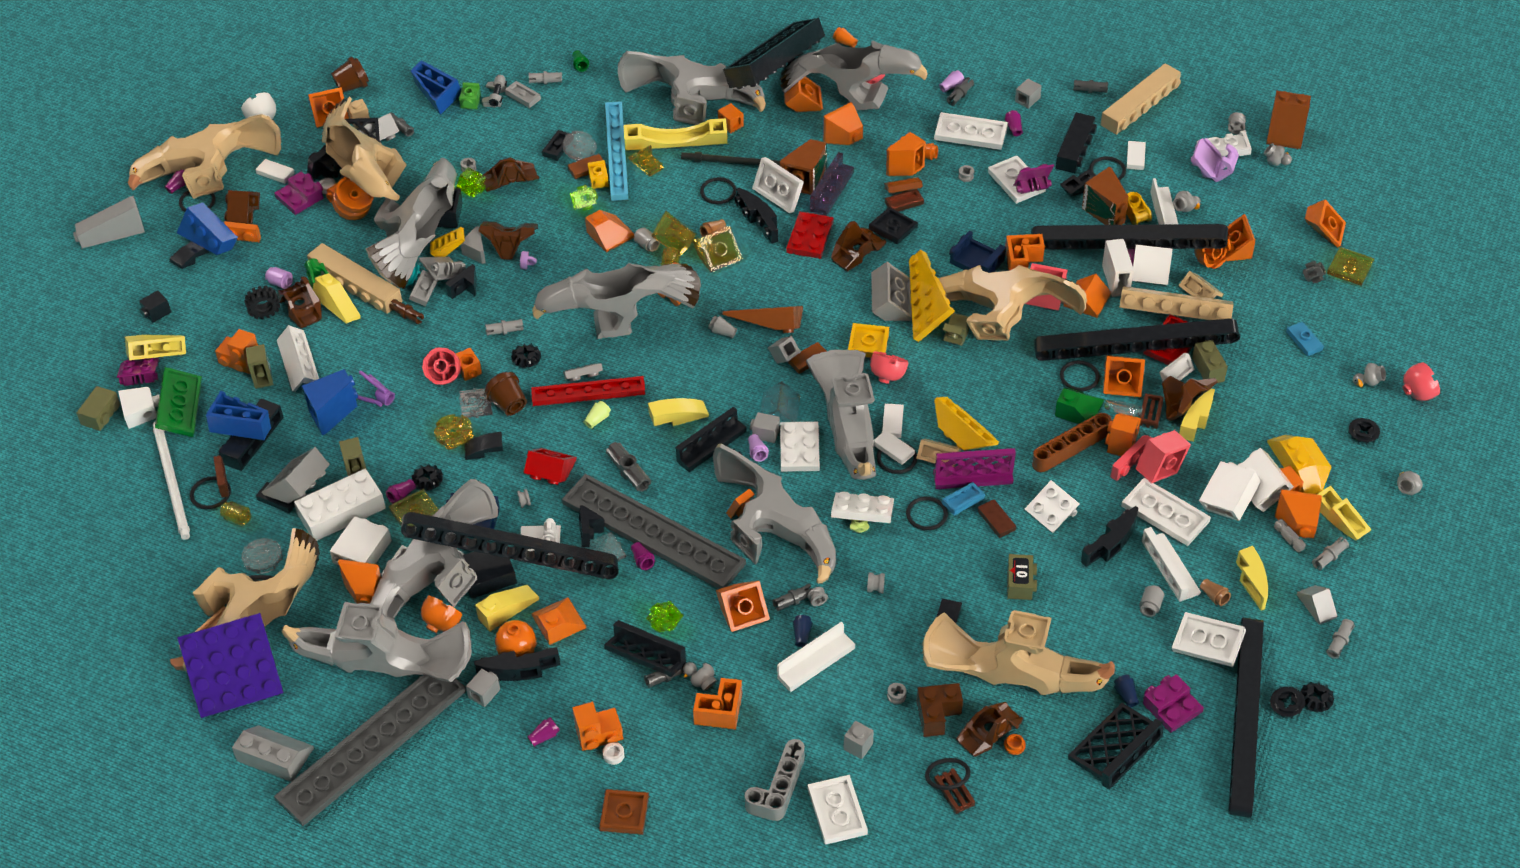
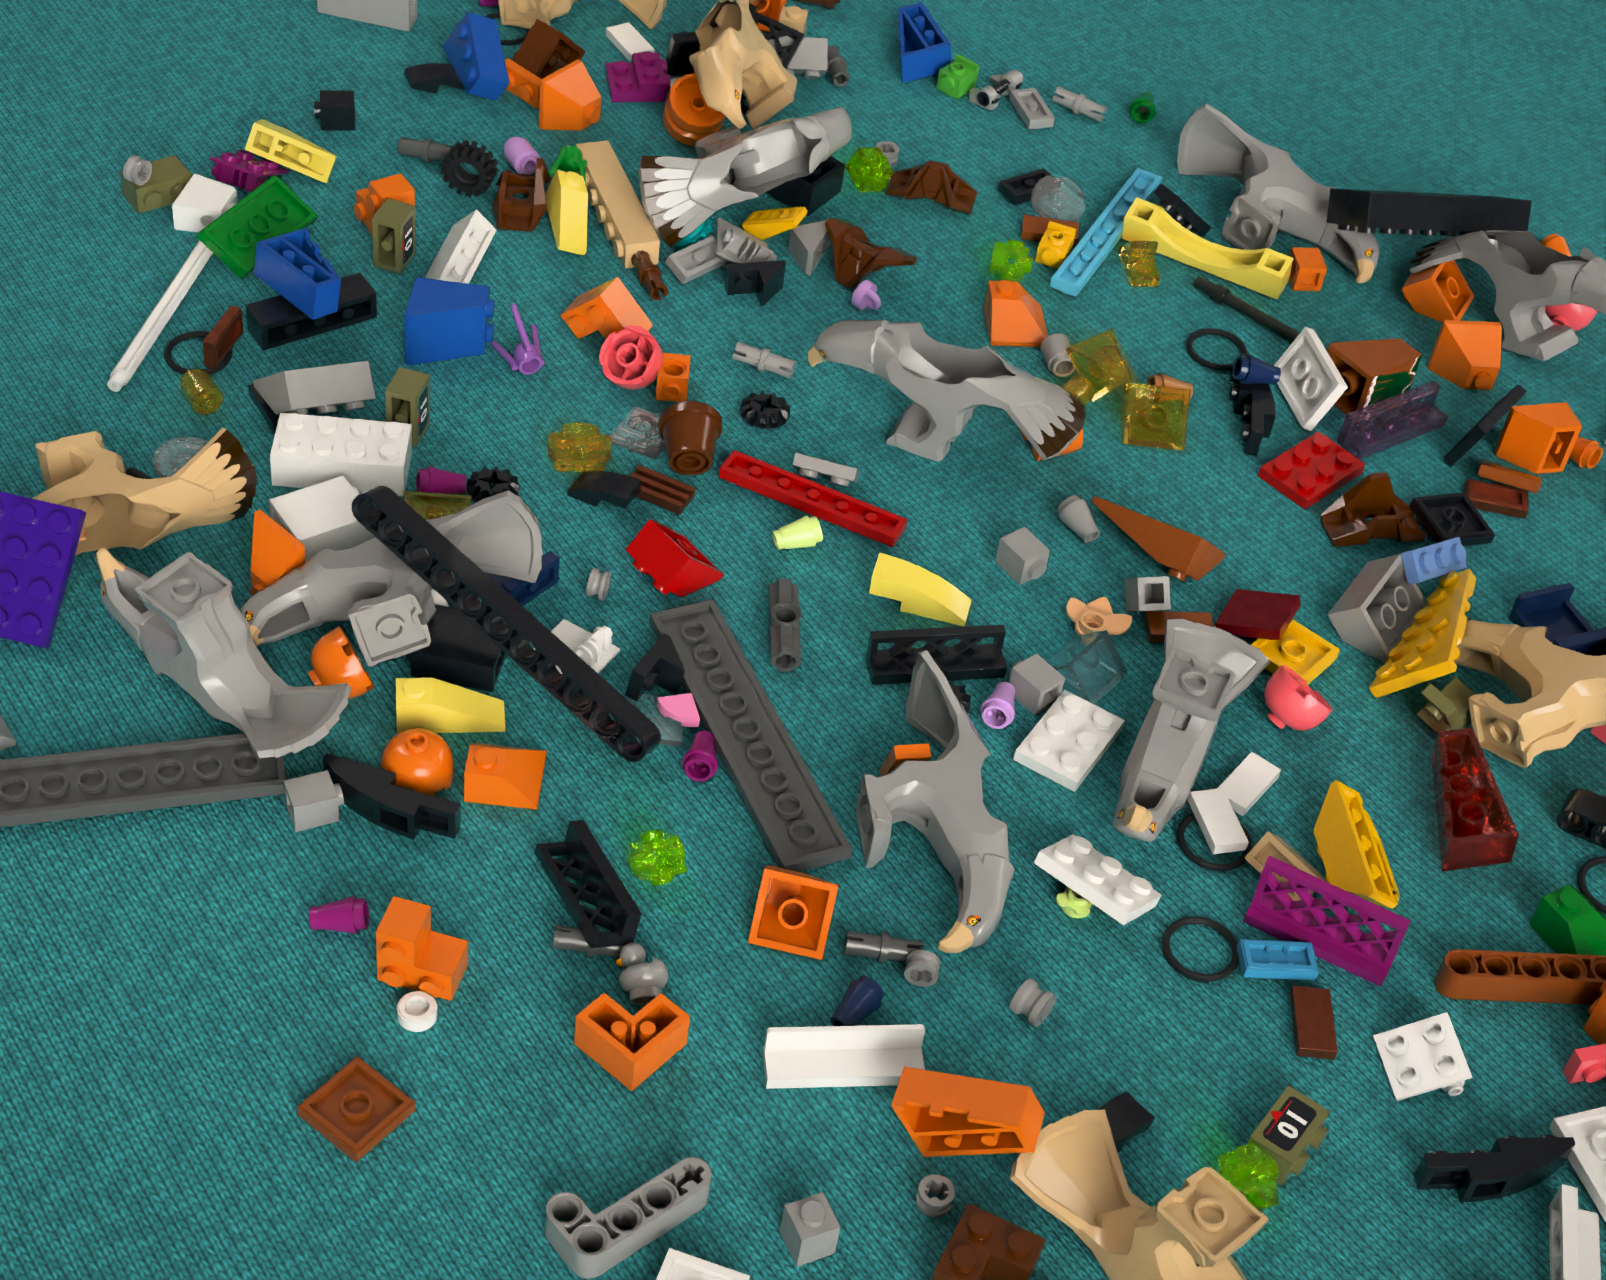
camera: 25 degrees right, 5 degrees down
(90, 407) = (137, 170): none -> light grey bush
(225, 302) = (423, 149): none -> dark grey pin
(279, 229) = (569, 99): none -> orange slope
(406, 346) = (604, 309): none -> orange brick
(510, 428) = (663, 490): none -> copper tile
(614, 538) = (680, 708): none -> bright pink tile
(647, 119) = (1181, 211): none -> black wing
(711, 363) = (1022, 556): none -> light grey brick
(752, 196) = (1255, 371): none -> dark blue cone
(767, 376) = (1096, 617): none -> light nougat plate
(840, 330) = (1258, 614): none -> dark red tile
(876, 164) = (1484, 425): none -> black tile
(890, 649) = (966, 1114): none -> orange wedge
(901, 254) = (1434, 560): none -> medium blue plate
(997, 374) = (1469, 806): none -> clear red wedge
(1018, 601) = (1251, 1174): none -> clear neon green brick

